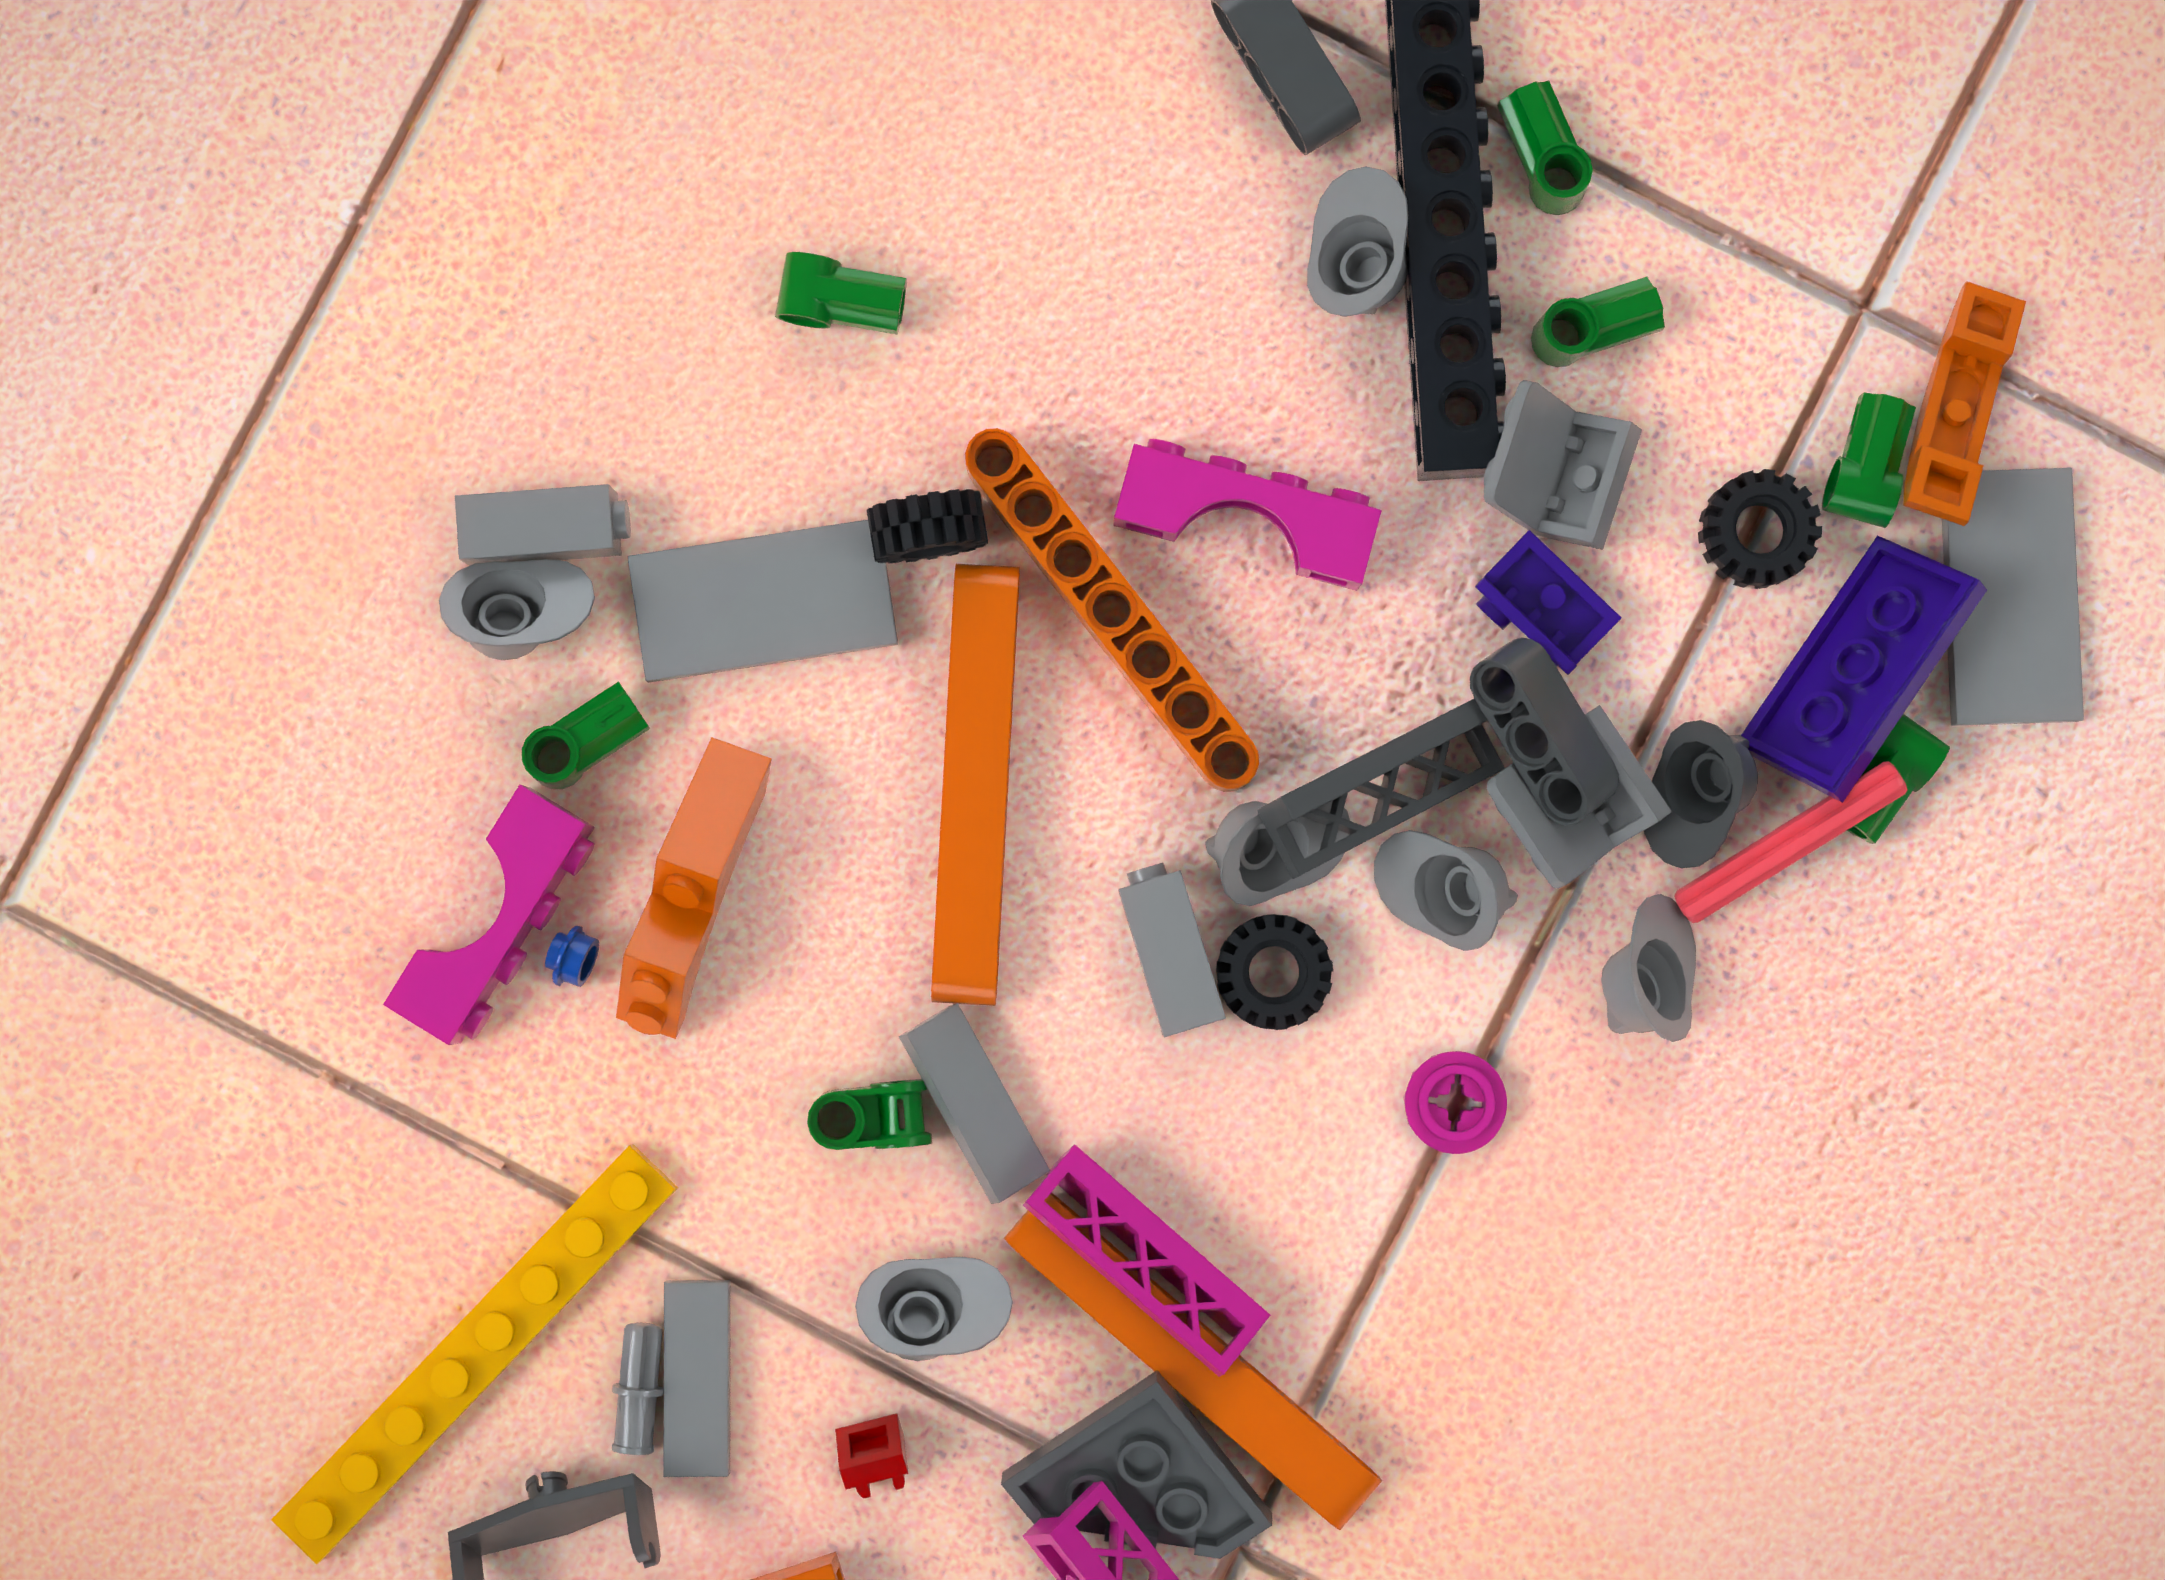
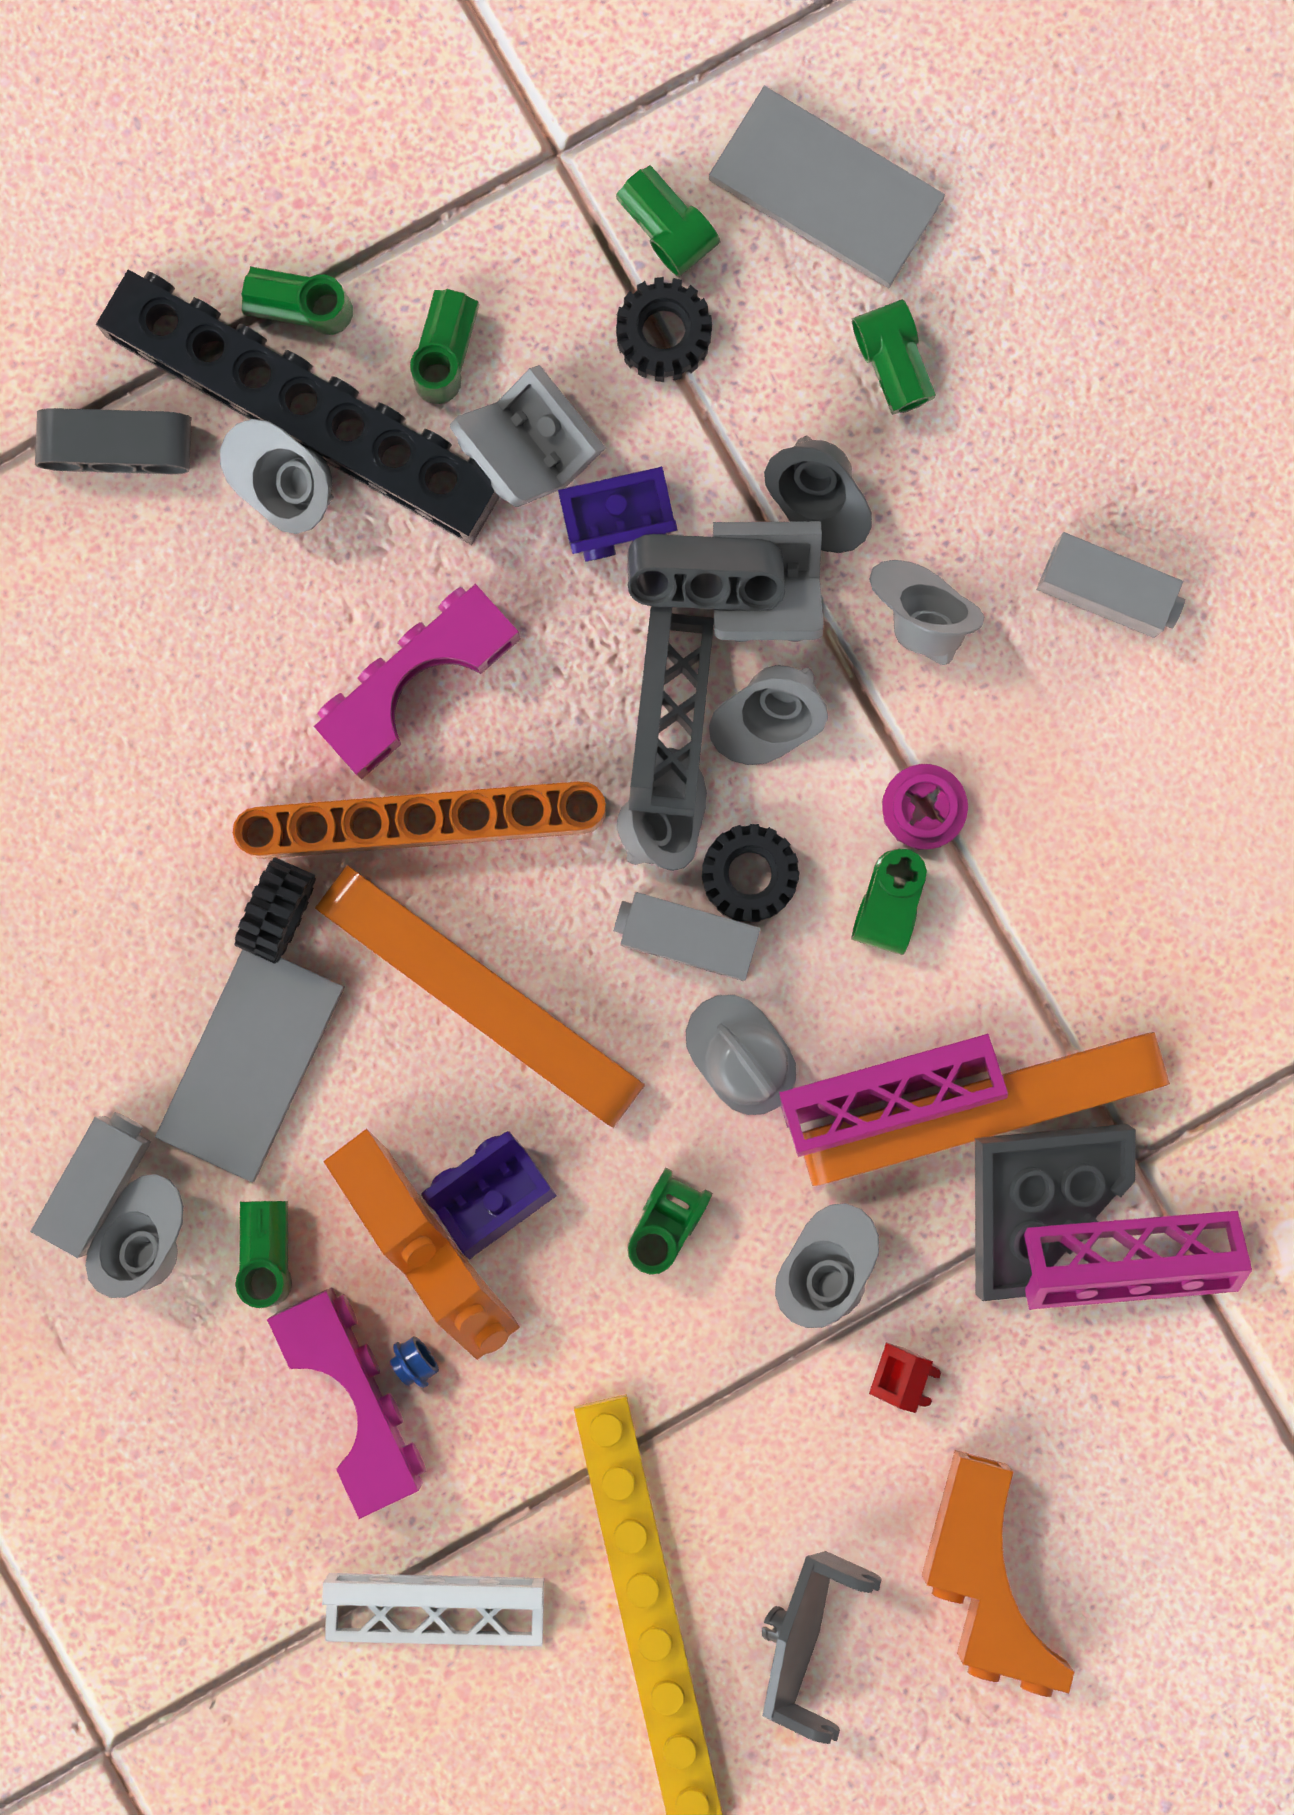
camera: 55 degrees left, 0 degrees up
(356, 1128) = (432, 1593): none -> white fence
(638, 1389) = (749, 1515): light grey axle -> none
(696, 1378) = (769, 1468): light grey tile -> none
(786, 921) = (488, 1193): none -> dark purple bracket
(823, 293) = (59, 875): green piece -> none
(974, 1103) = (704, 1144): light grey tile -> none
(1088, 1080) = (740, 1054): none -> light grey piece
(1325, 1133) = (889, 912): none -> green piece
(1789, 843) = (896, 453): coral axle -> none
(1801, 1145) = (1112, 586): none -> light grey brick
(1861, 667) = (806, 323): dark purple tile -> none
(1959, 402) = (667, 132): orange slope -> none

